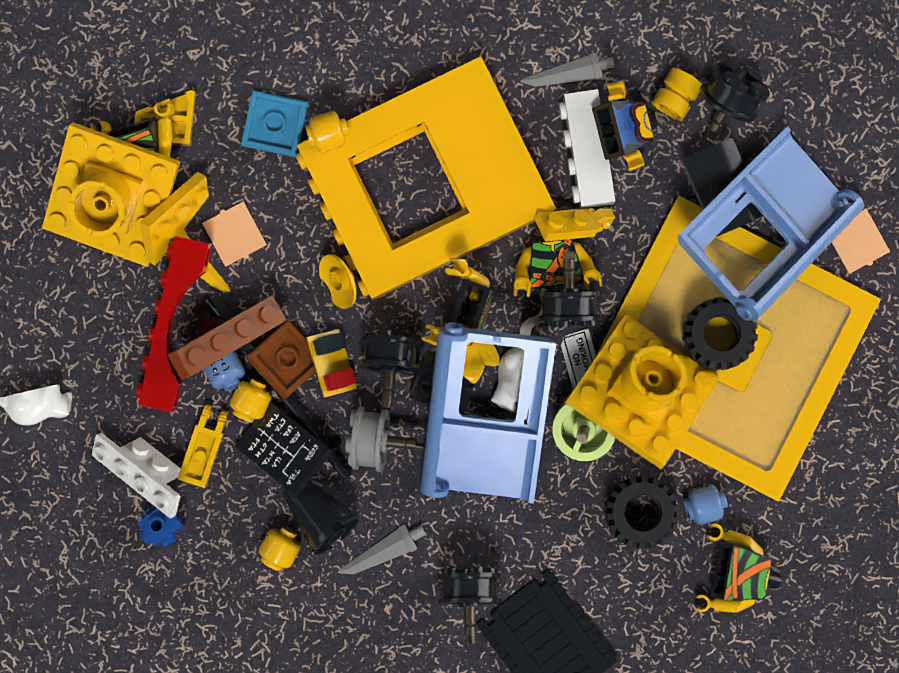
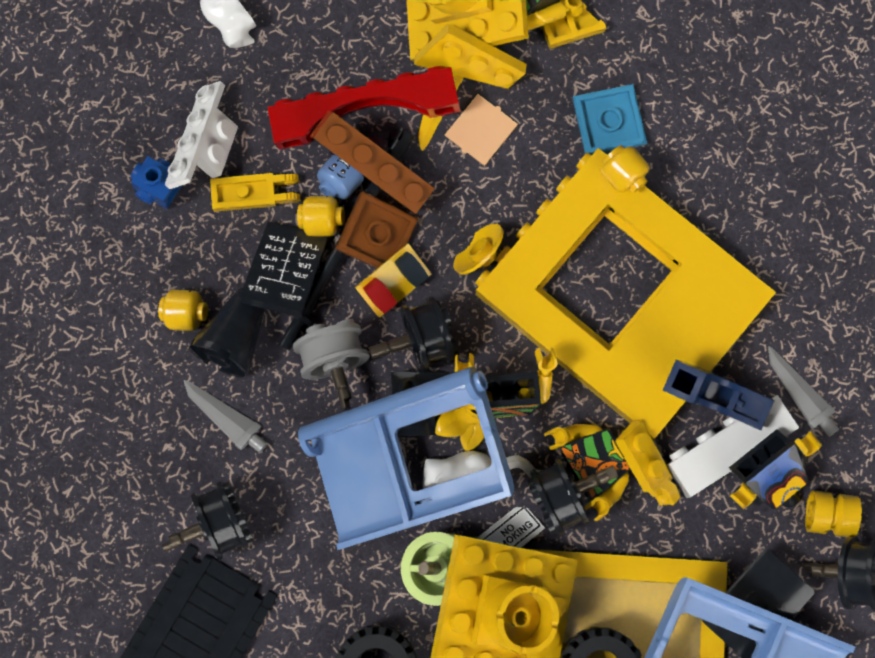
camera: 70 degrees right, 5 degrees down
(542, 141) = (718, 393): none -> dark blue arch

